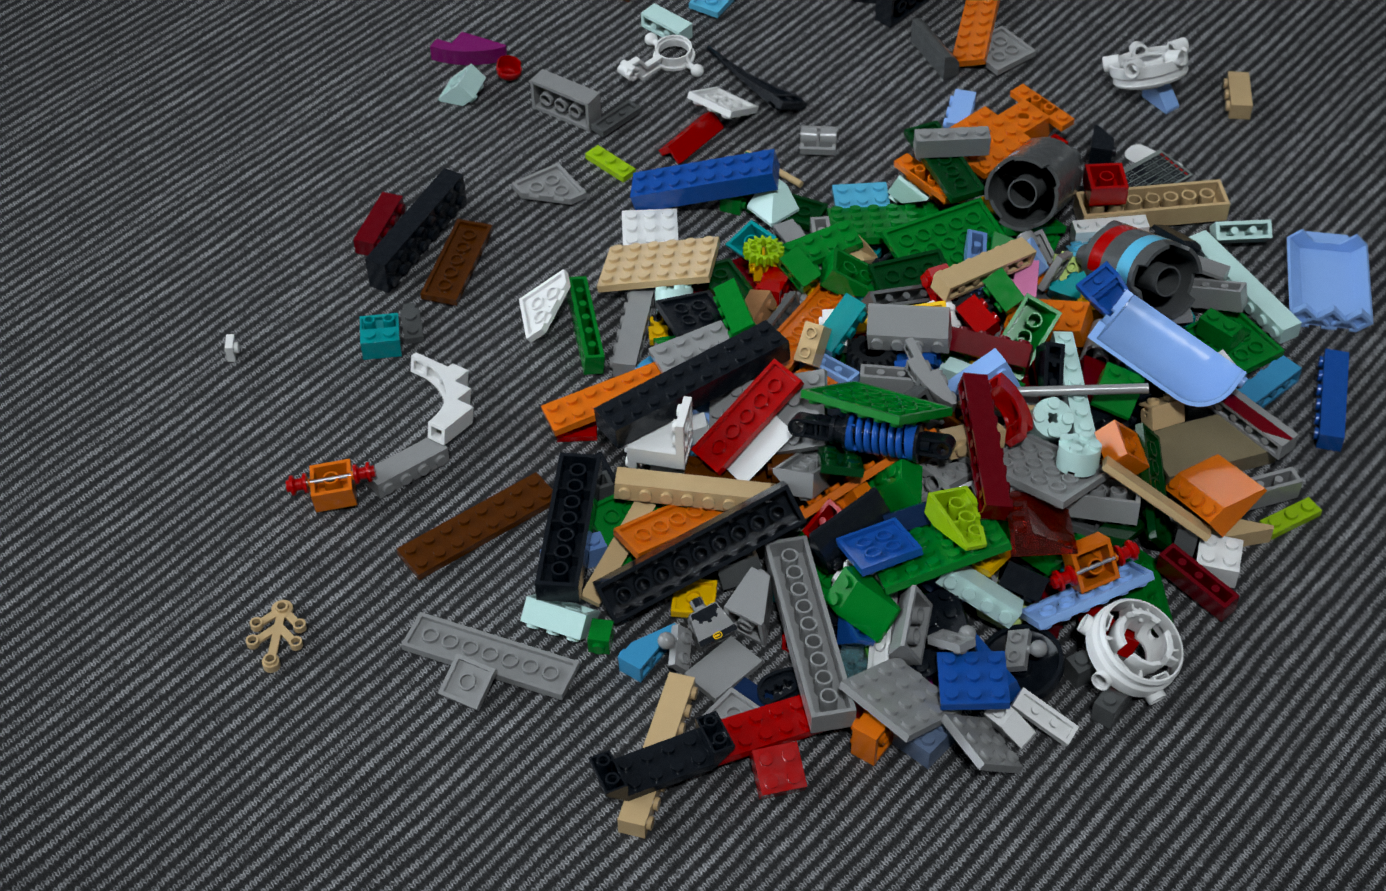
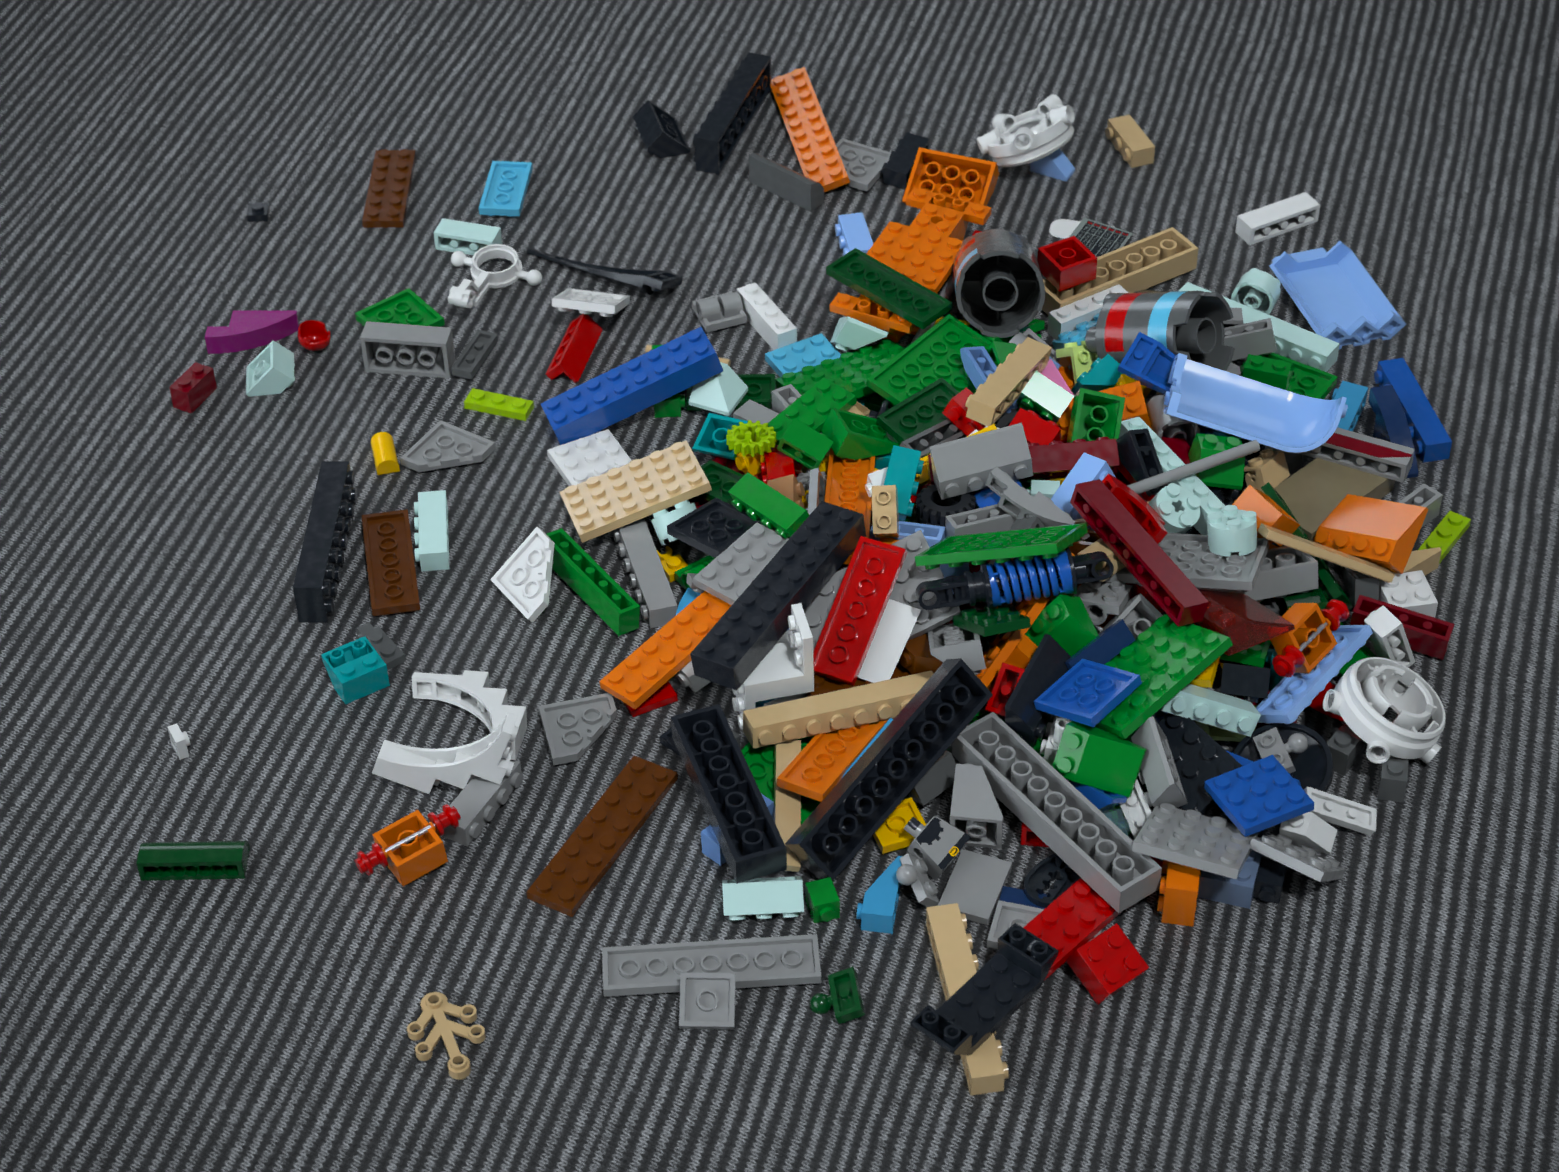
camera: 25 degrees left, 5 degrees down
(188, 440) = (193, 860): none -> dark green brick
(379, 222) = (271, 550): dark red brick -> none
(398, 434) = (426, 767): none -> white arch
(401, 82) = (193, 387): none -> dark red brick
(500, 247) = (433, 531): none -> light aqua brick
(505, 176) = (384, 453): none -> yellow brick
(508, 433) = (575, 725): none -> light grey plate
(569, 719) = (844, 997): none -> dark green plate
(583, 69) = (401, 309): none -> green plate
(849, 154) = (767, 317): none -> white brick
(951, 142) = (890, 264): light grey brick -> none
(951, 755) = (1270, 881): none -> black brick
(953, 641) = (1224, 760): light grey plate -> none
(957, 516) = (1150, 631): lime wedge -> none
(1041, 59) = (901, 161): none -> black brick
(1055, 270) = (1075, 363): light grey tile -> none
(1069, 86) = (953, 176): none -> orange slope
(1102, 147) = (1033, 228): black slope -> none
(1172, 590) = (1389, 637): none -> white brick
(1242, 231) = (1222, 272): light aqua brick -> none
(1258, 256) = (1257, 290): none -> light aqua brick
(1300, 408) = (1391, 420): none -> dark blue slope
(1322, 198) = (1277, 218): none -> white brick

